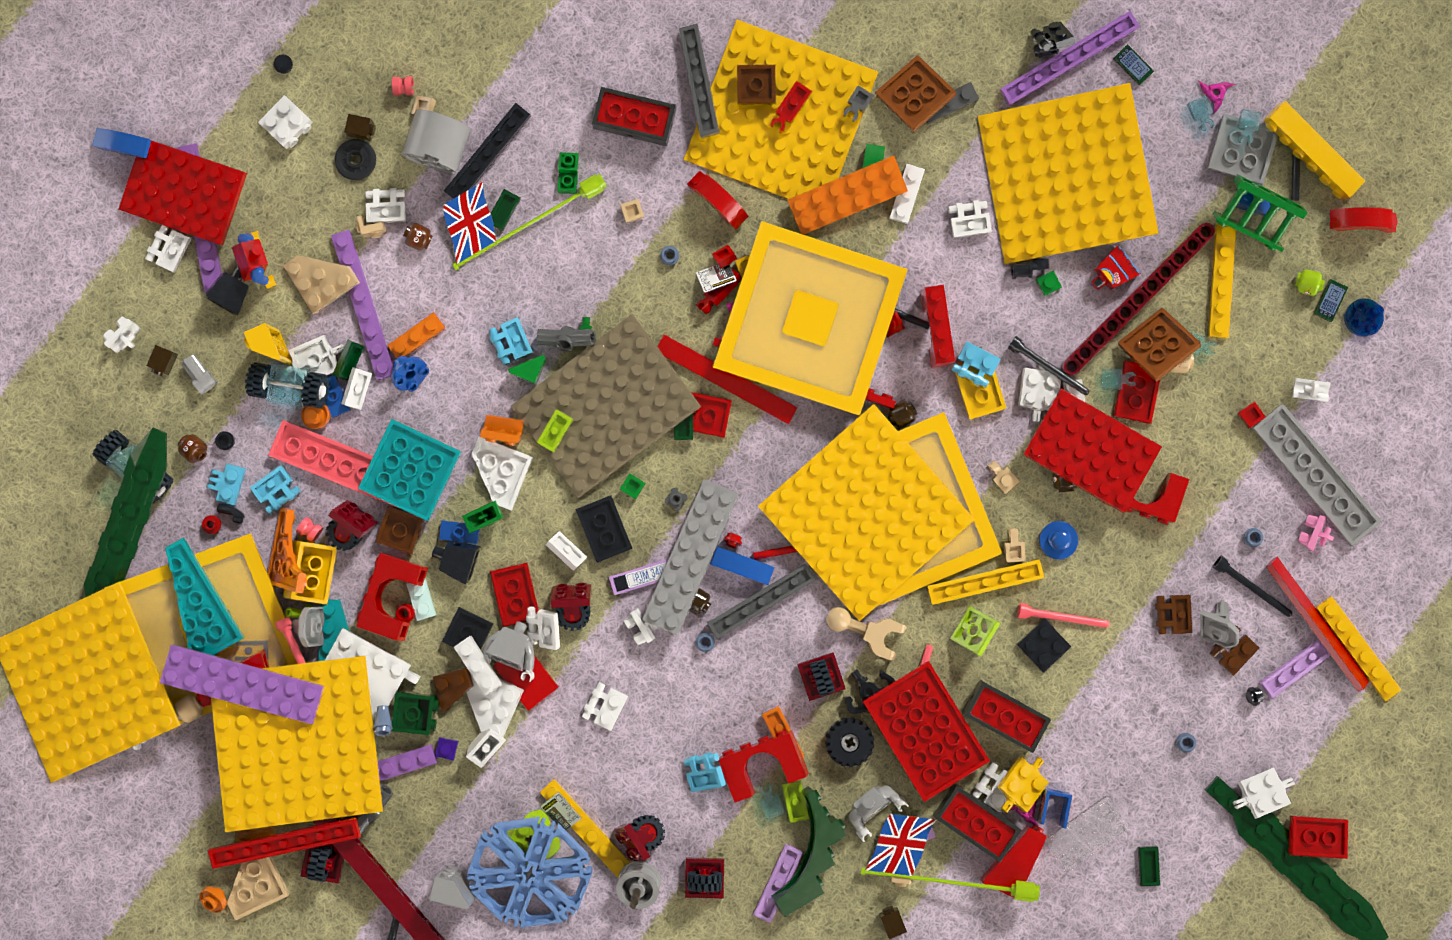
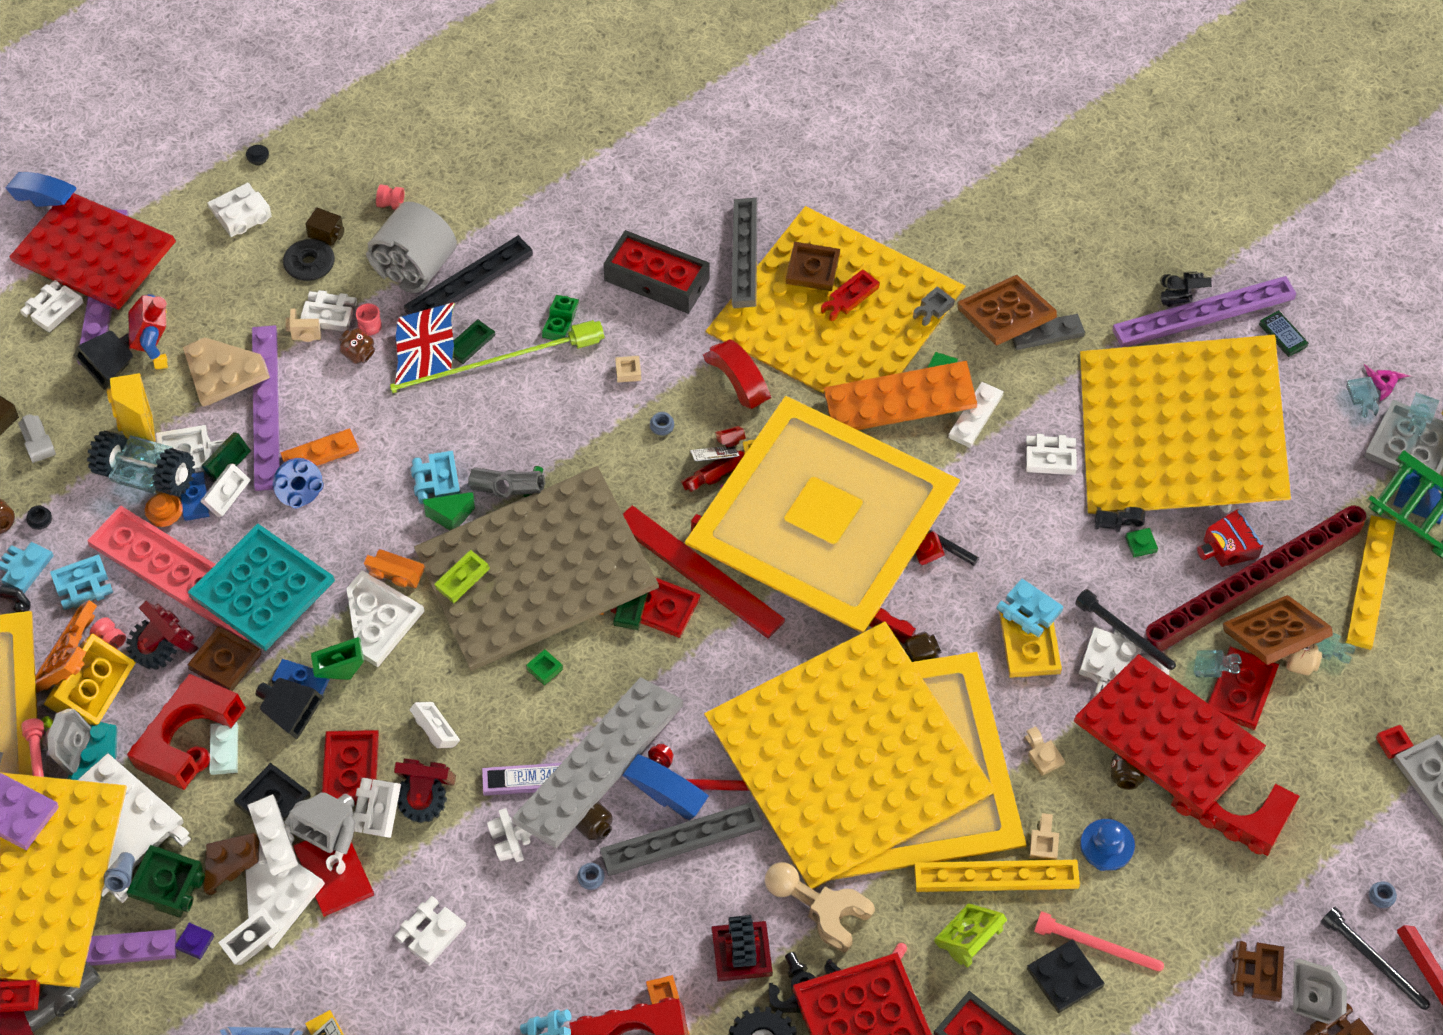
camera: 10 degrees right, 30 degrees down
(416, 209) = (369, 318): none -> coral wheel
(604, 528) = (492, 710): black plate -> none
(676, 504) = (597, 701): dark grey plate -> none
(935, 305) = (988, 552): red arch -> none

